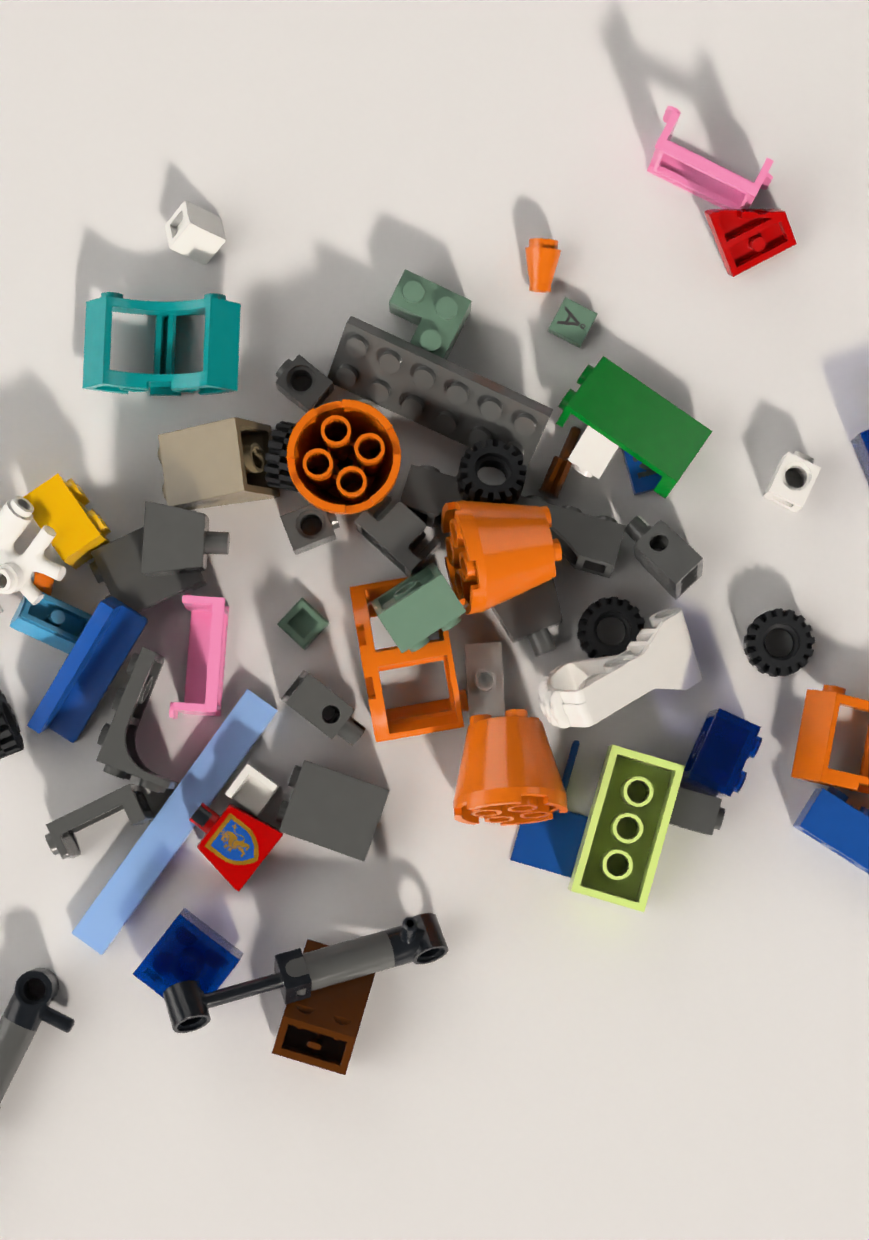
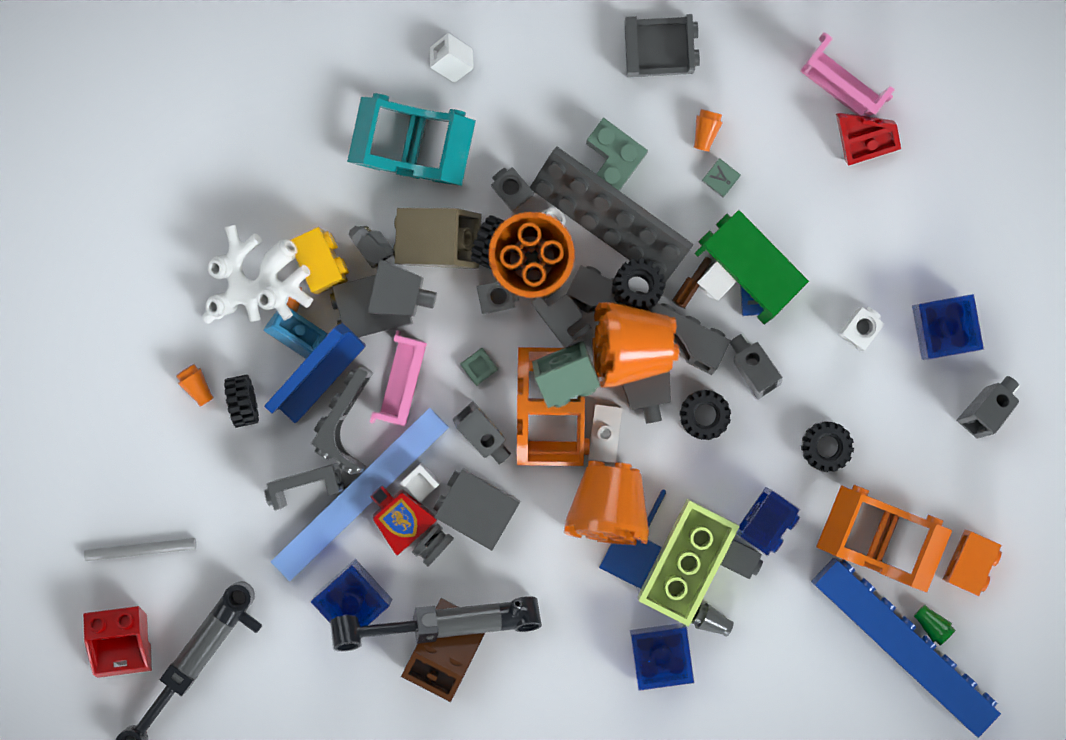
camera: 15 degrees right, 5 degrees up
(132, 489) = (371, 244): none -> dark grey rock
(288, 870) = (435, 546): none -> dark grey wheel
(462, 170) = (661, 46): none -> dark grey panel
(594, 688) = (695, 456): white arm -> none
(616, 961) = (661, 656): none -> clear blue brick
(673, 901) = (711, 620): none -> dark grey cone

